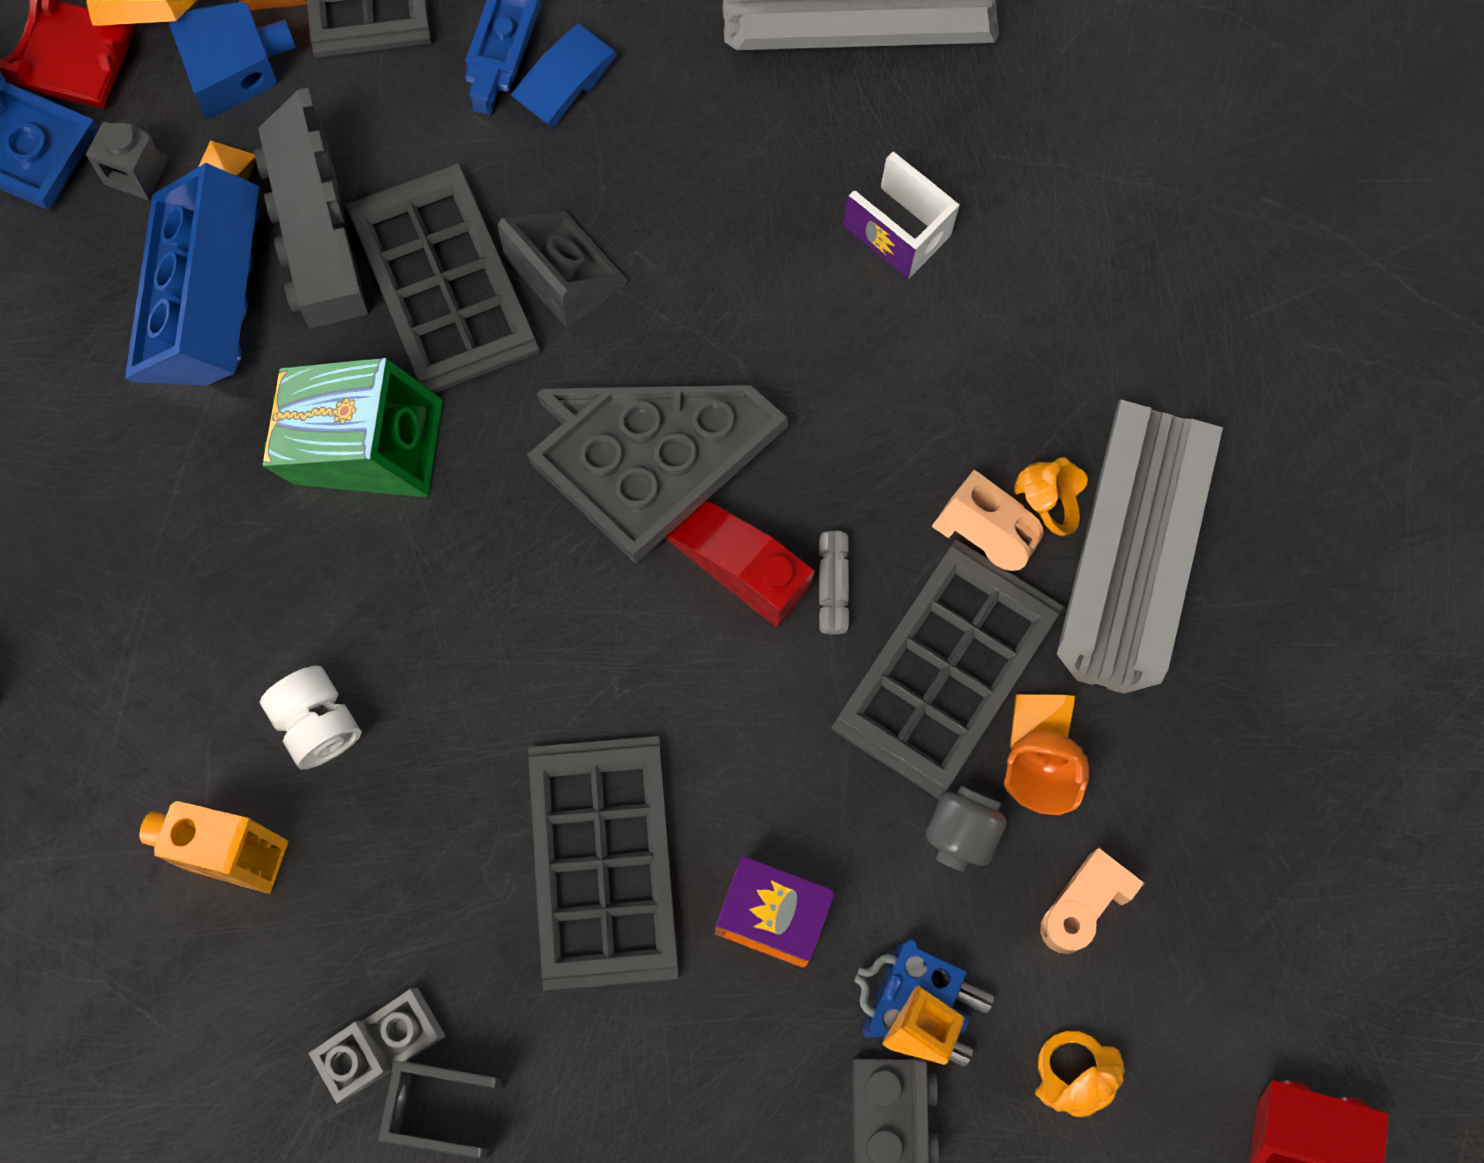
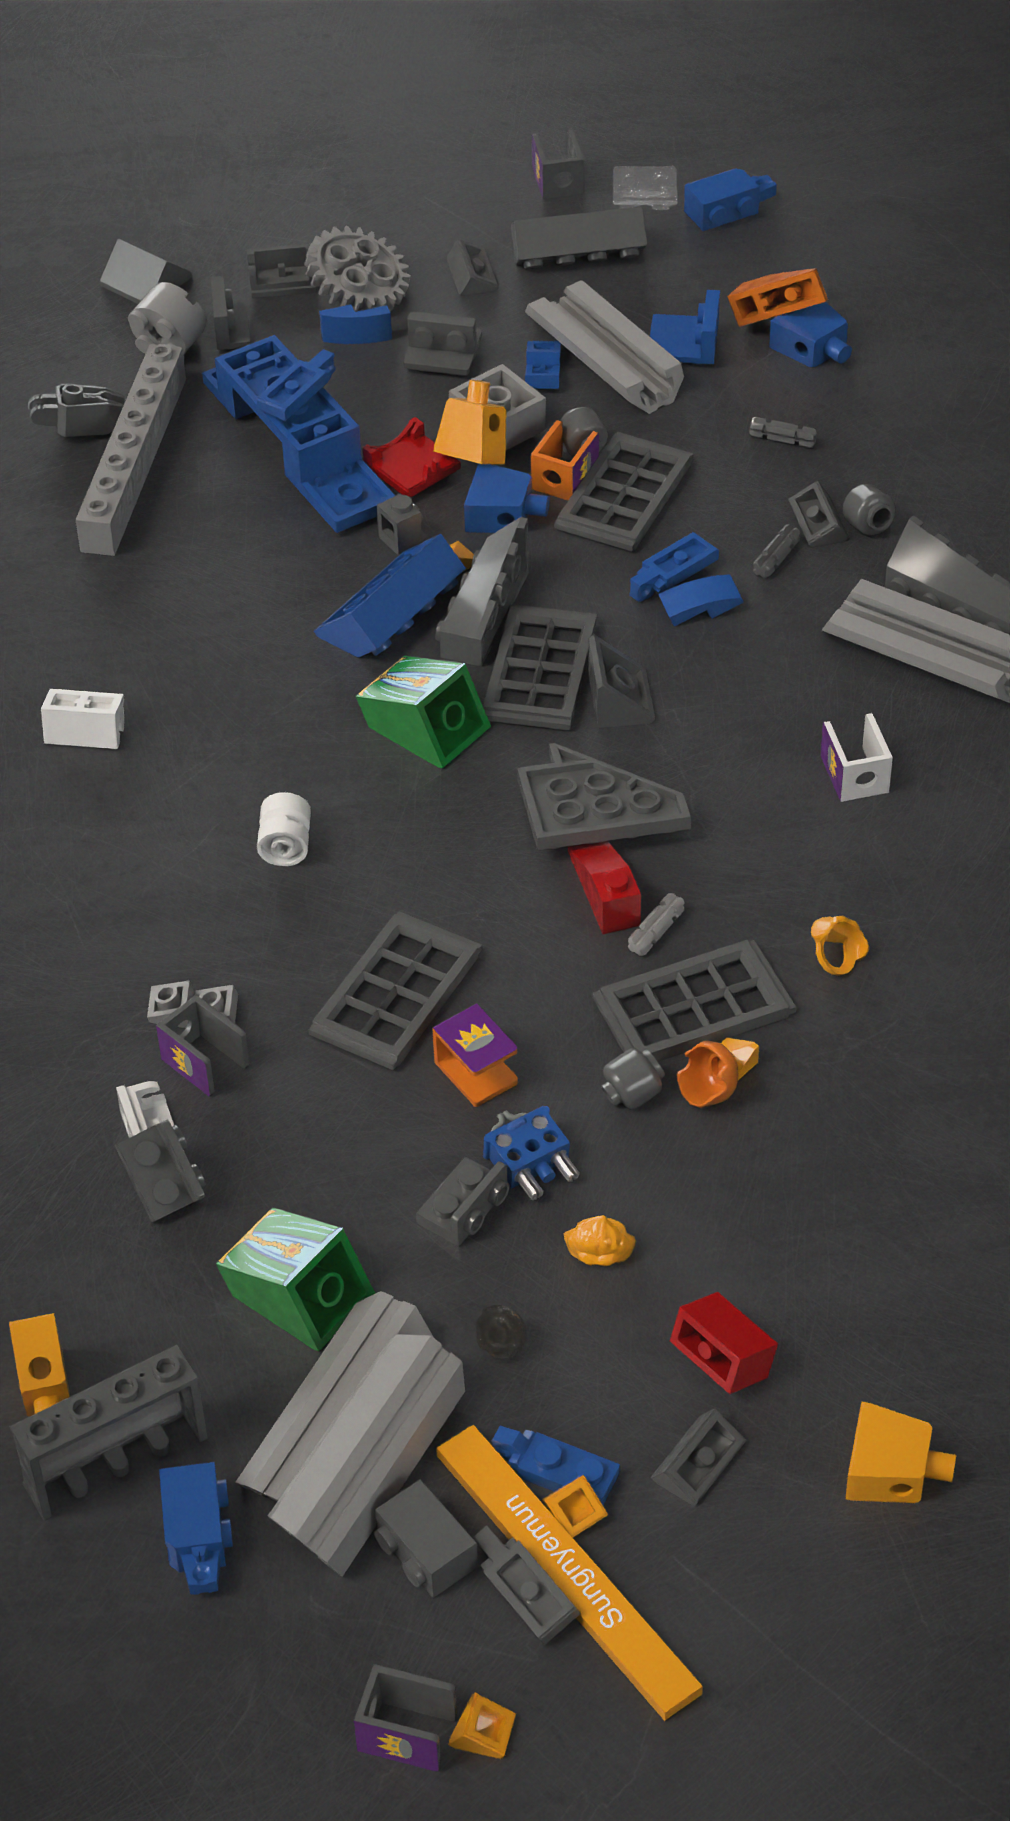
camera: 40 degrees right, 25 degrees down
(215, 845) = (184, 861): light orange torso -> none
(925, 1028) = (517, 1145): light orange slope -> none
(991, 522) = (780, 933): light nougat leg -> none
(1073, 915) = (679, 1155): light nougat leg -> none
(1138, 549) = (866, 993): light grey piece -> none

